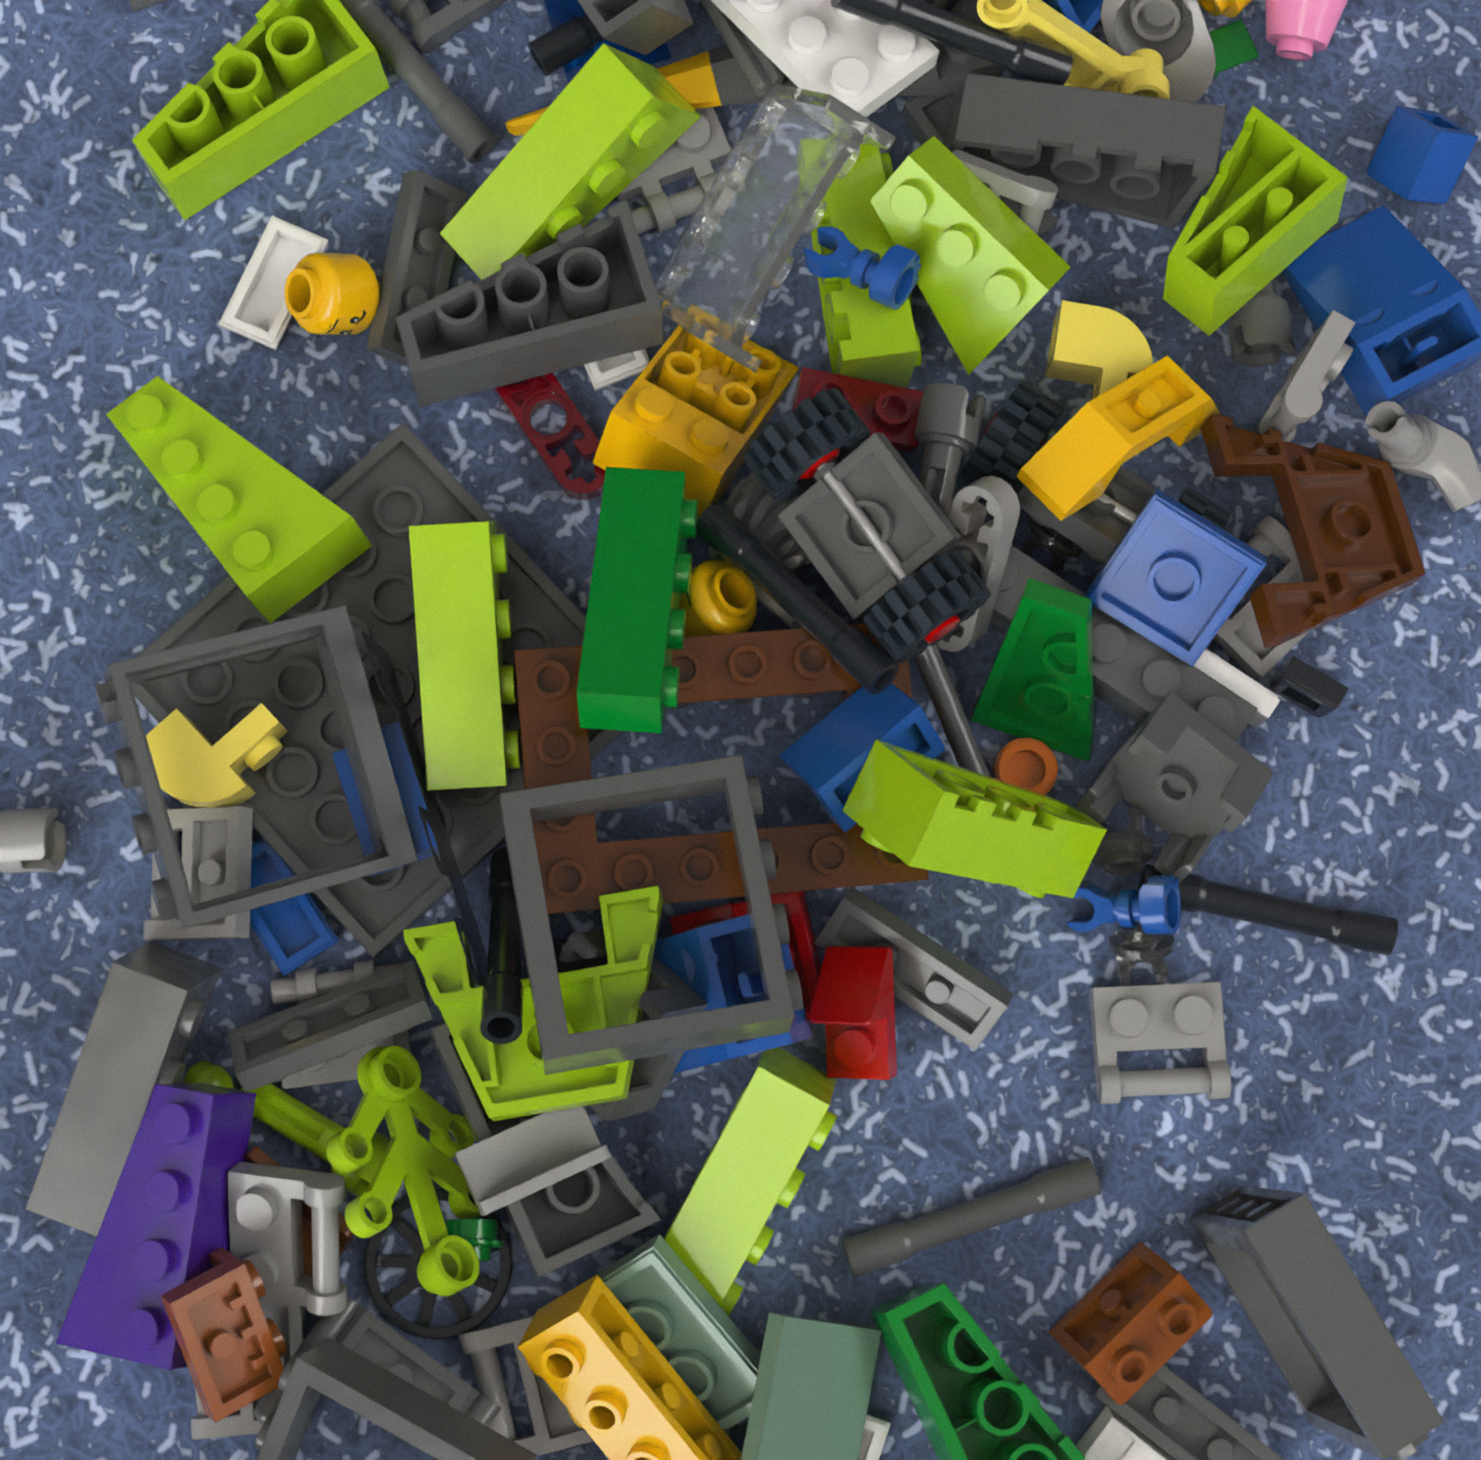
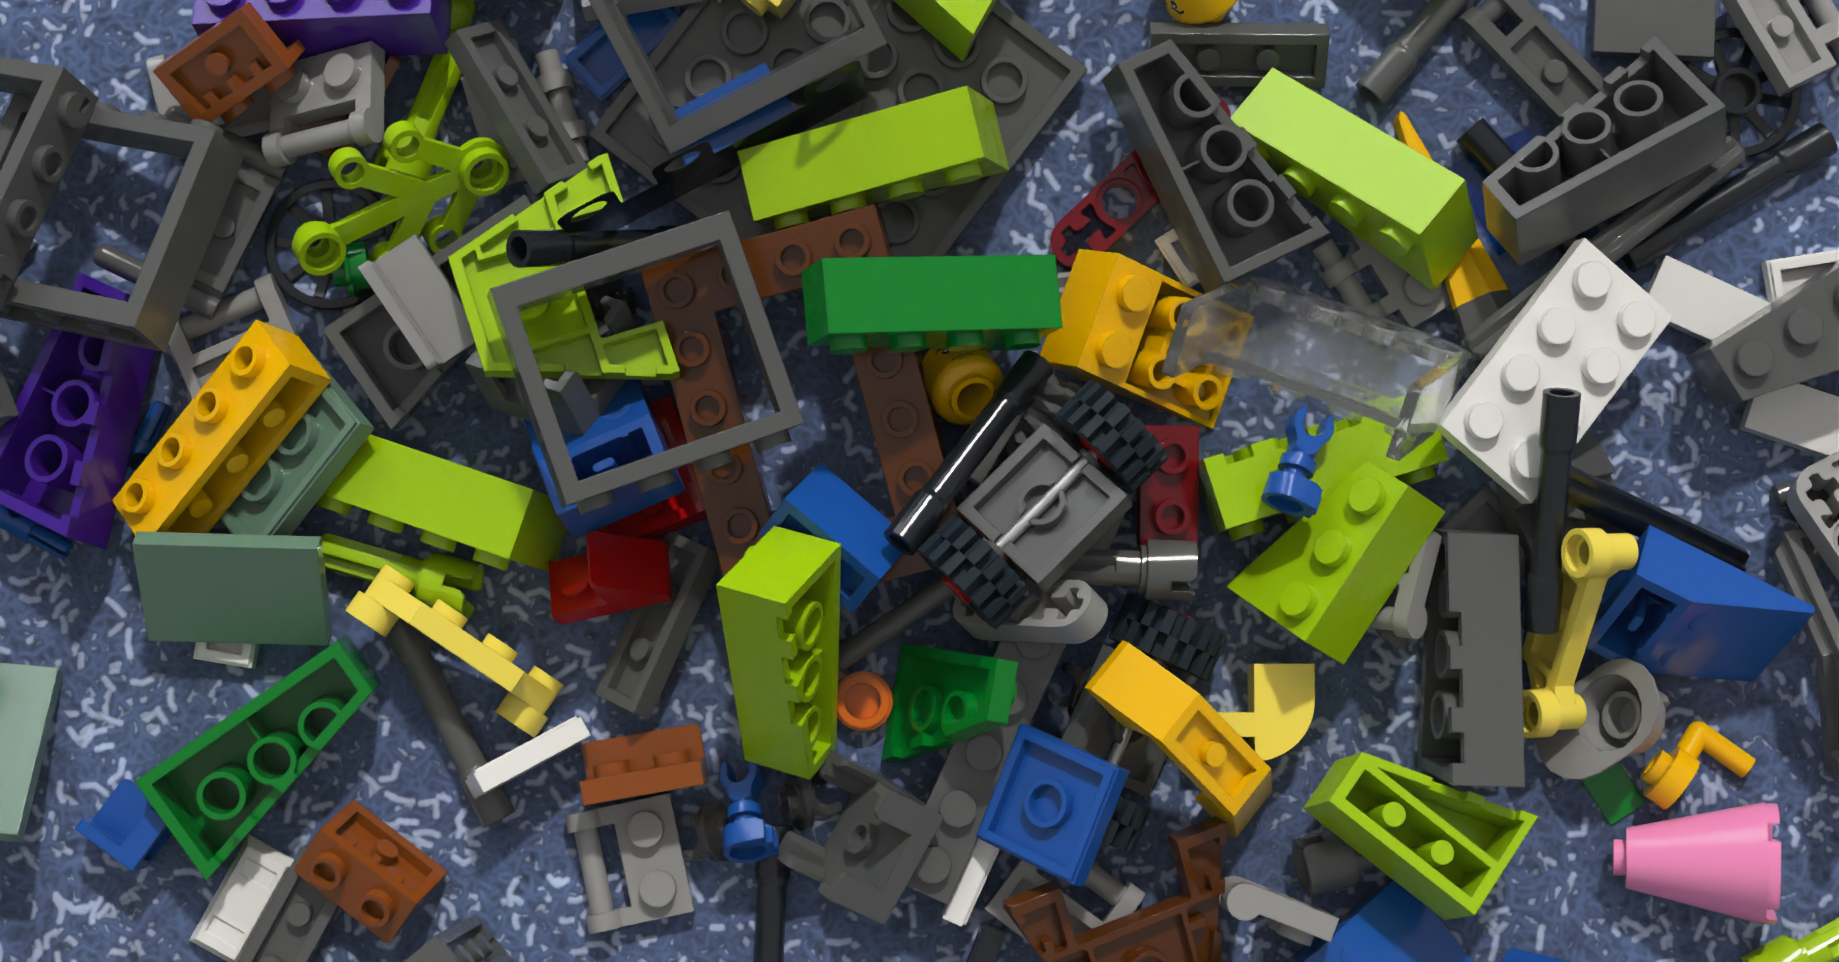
camera: 90 degrees right, 5 degrees up
(825, 1212) = (433, 577): none -> lime piece
(845, 1250) = (390, 599): none -> light yellow plate
(1036, 1130) = (527, 756): none -> white tile
(1061, 1008) = (643, 764): none -> dark orange bracket

